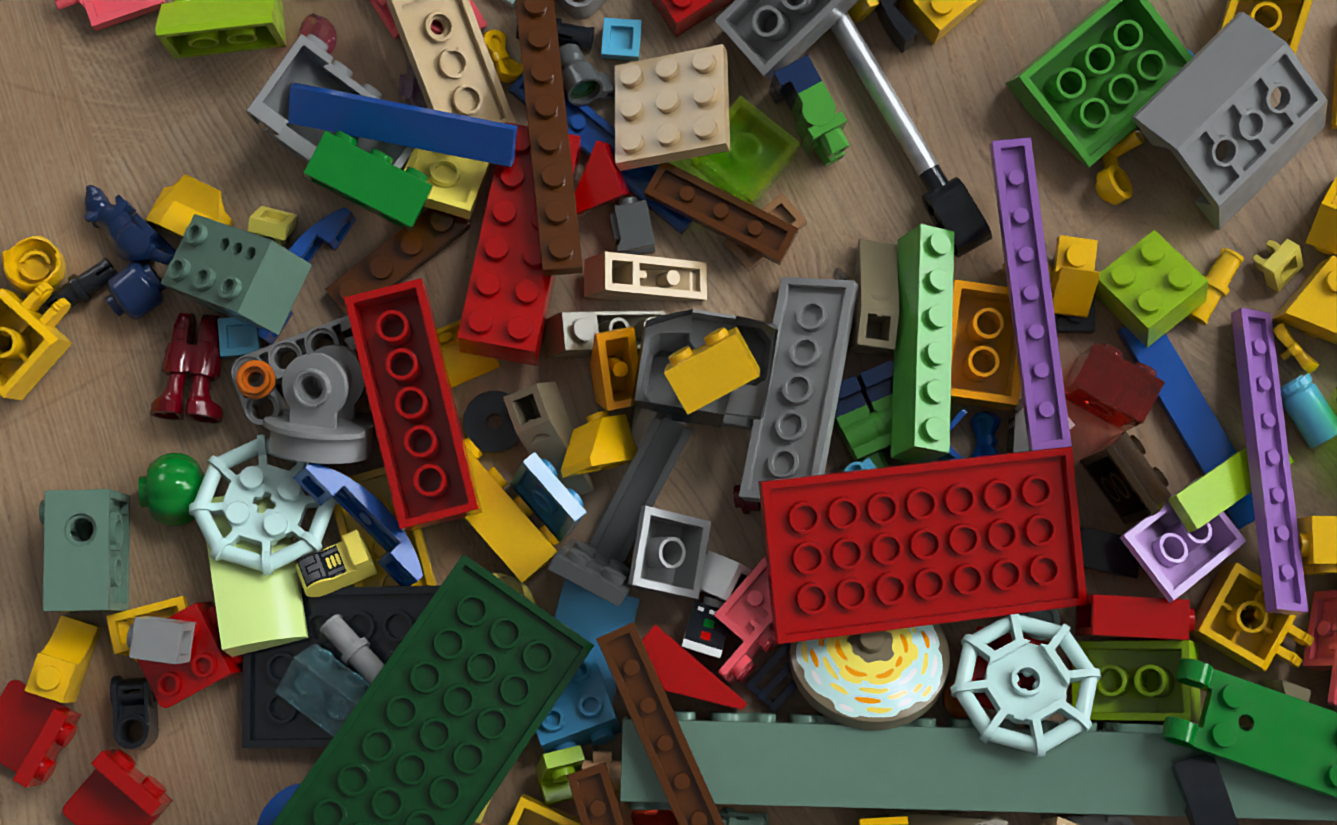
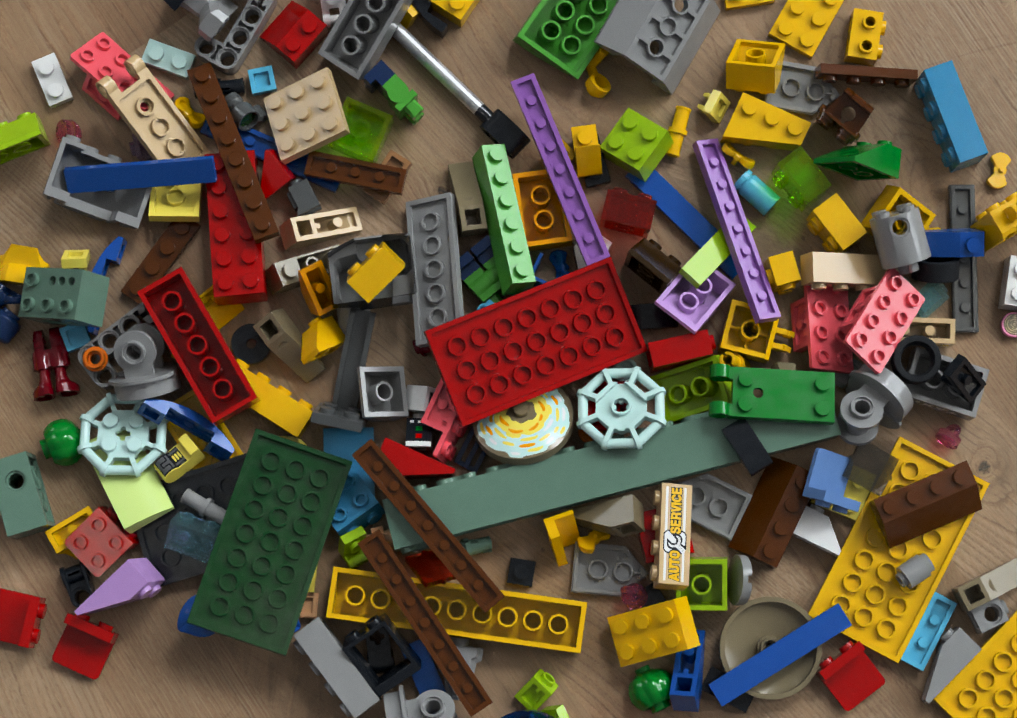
camera: 15 degrees left, 0 degrees up
(64, 661) = (26, 567): yellow arch -> none
(161, 639) = (84, 533): light grey brick -> none
(209, 733) = (129, 583): none -> lavender slope
(368, 179) = (130, 215): green brick -> none
(547, 497) = (298, 380): dark azure plate -> none
(1205, 654) = (734, 360): none -> yellow pin

